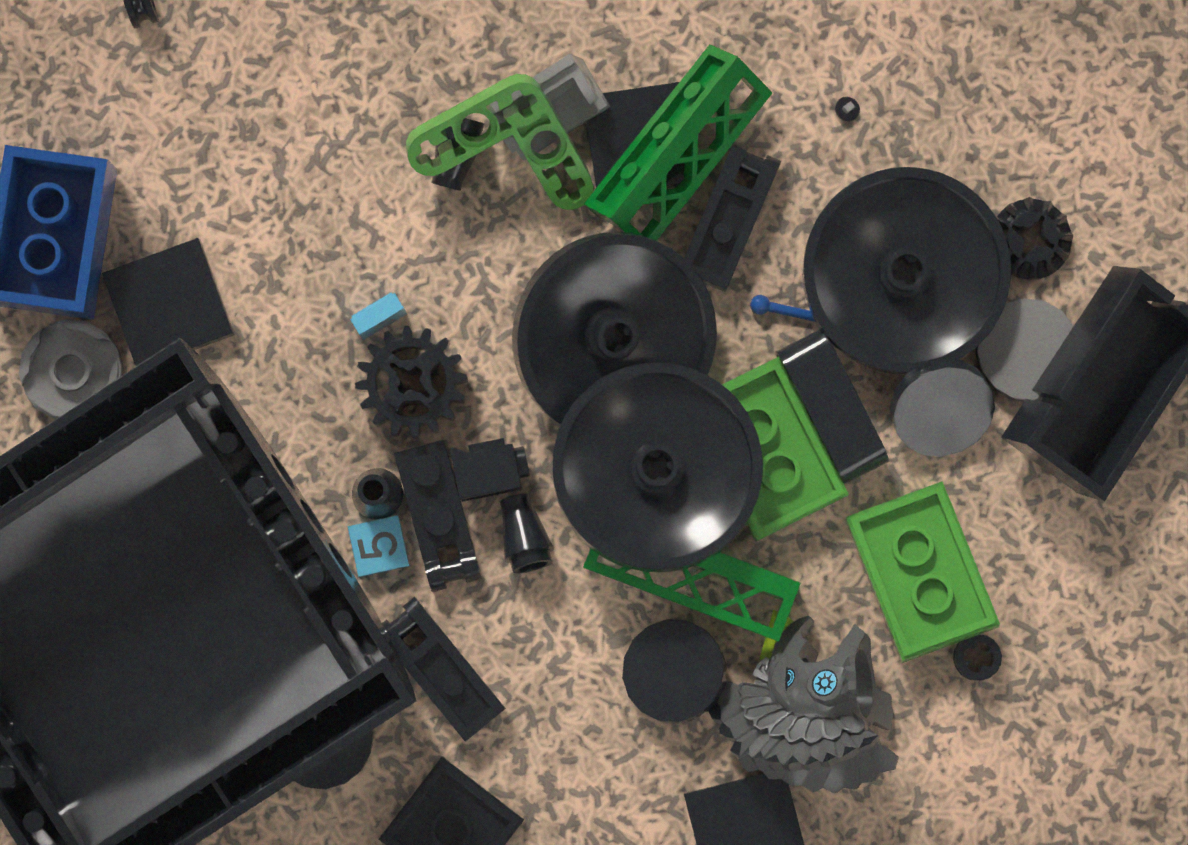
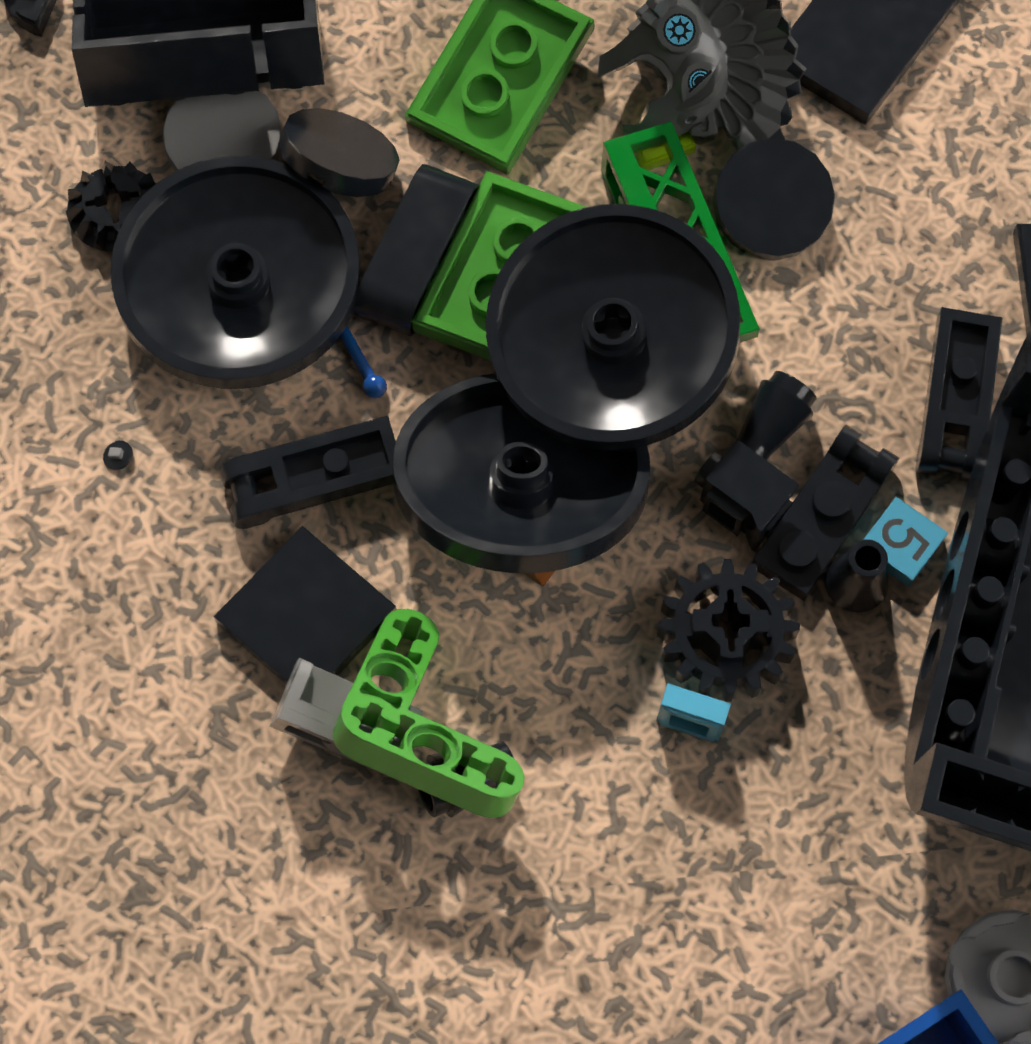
camera: 135 degrees left, 15 degrees down
(167, 300) = (862, 937): black tile -> none
(673, 139) = (284, 566): green fence -> none

